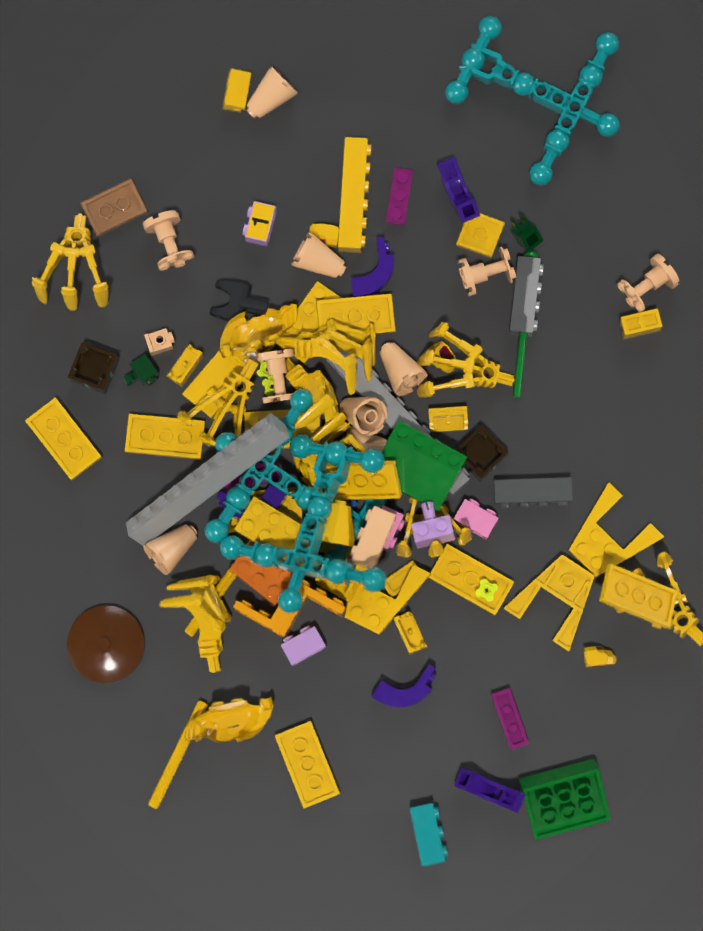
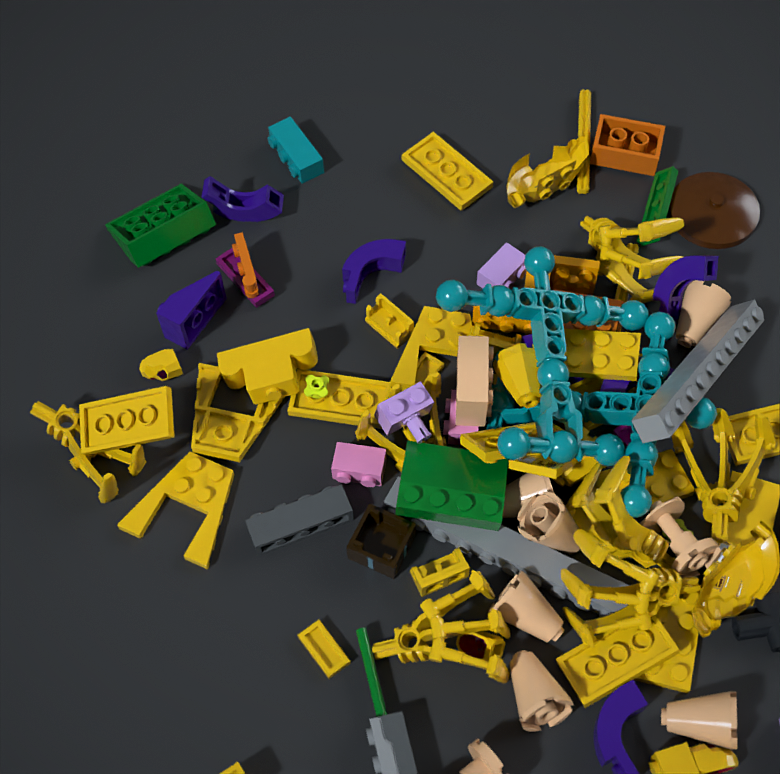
camera: 155 degrees right, 20 degrees down
(148, 728) = (627, 145): none -> orange brick
(151, 661) = (659, 197): none -> green plate
(171, 570) = (678, 276): none -> dark purple arch
(417, 314) = (537, 693): none -> light nougat cone
(508, 718) = (245, 266): none -> orange plate
(517, 621) = (269, 365): none -> yellow brick
(545, 395) = (324, 649): none -> yellow tile
(568, 691) = (191, 309): none -> dark purple slope

